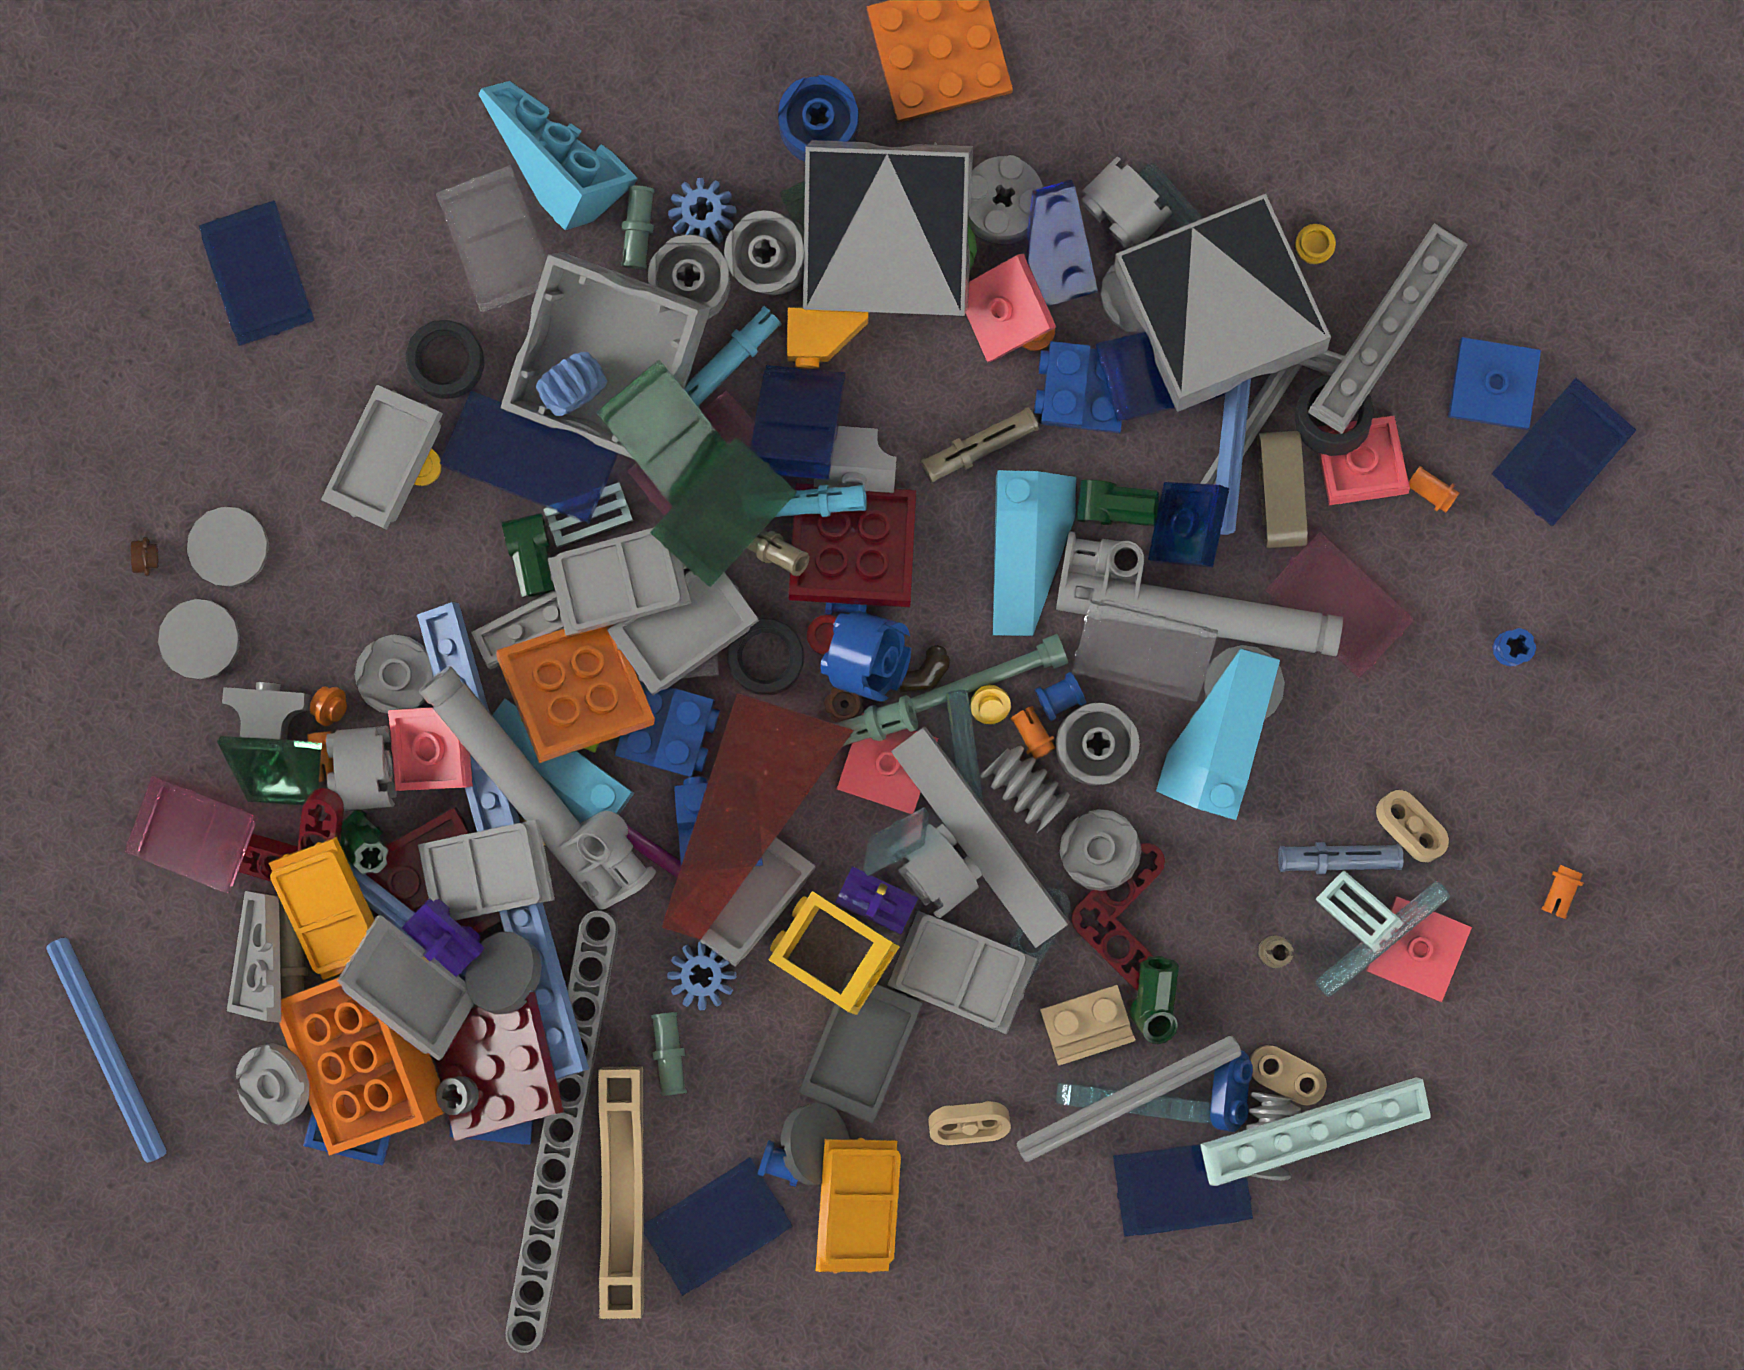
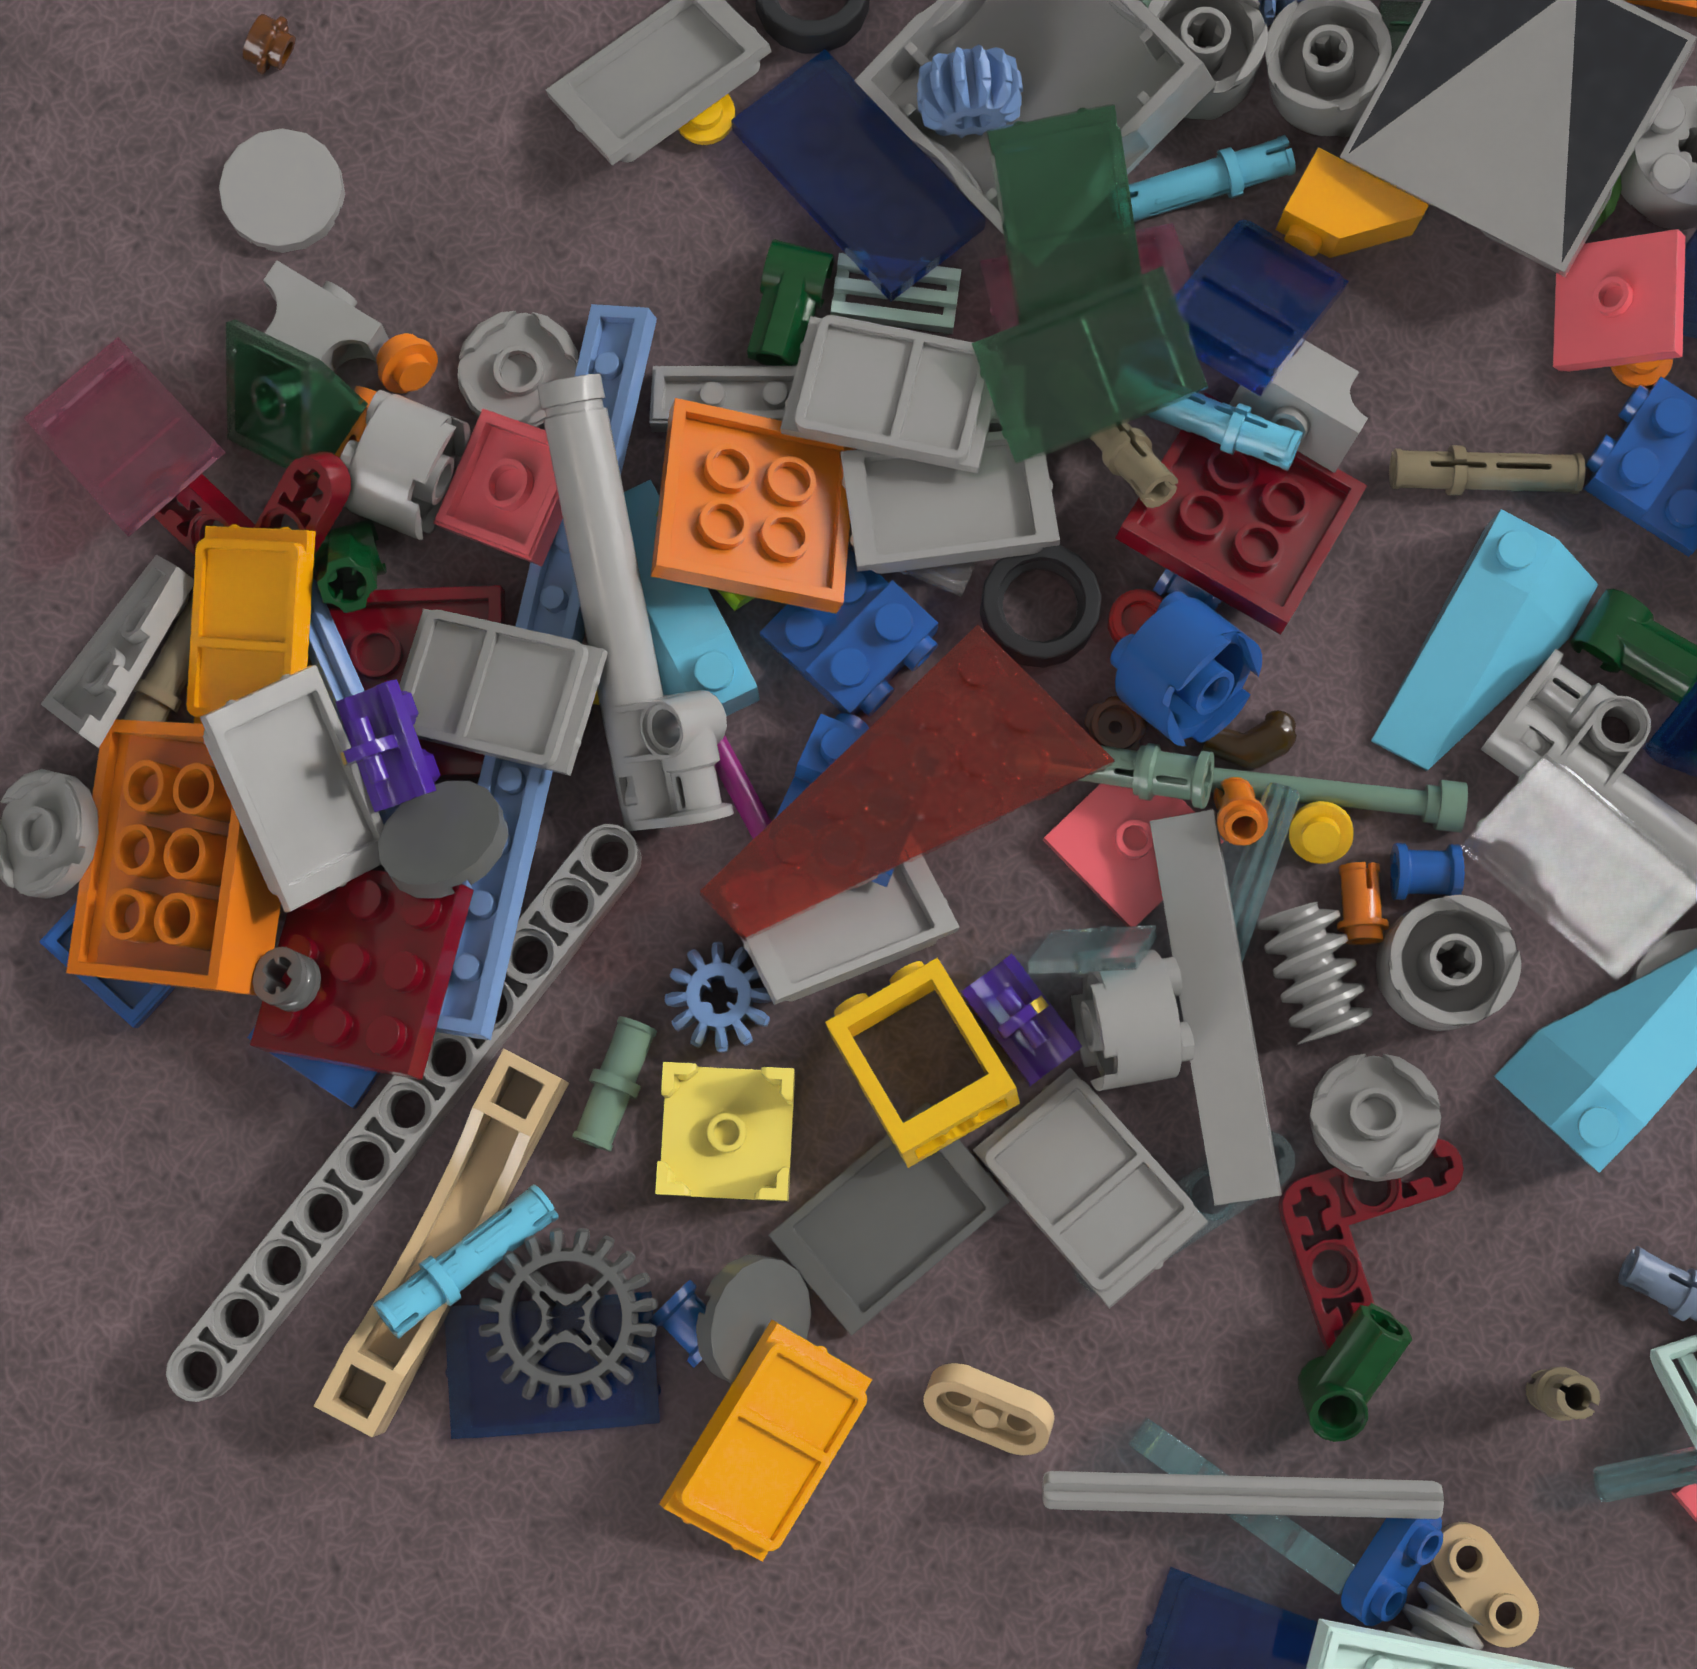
camera: 30 degrees right, 5 degrees down
(227, 546) = (387, 89): light grey tile -> none
(636, 1203) = (456, 1268): none -> medium azure pin
(731, 1201) = (529, 1277): none -> dark grey gear
(745, 1048) = (726, 1132): none -> light yellow panel
(940, 723) = (1240, 815): none -> orange pin
(1087, 1025) = (1229, 1357): tan plate -> none

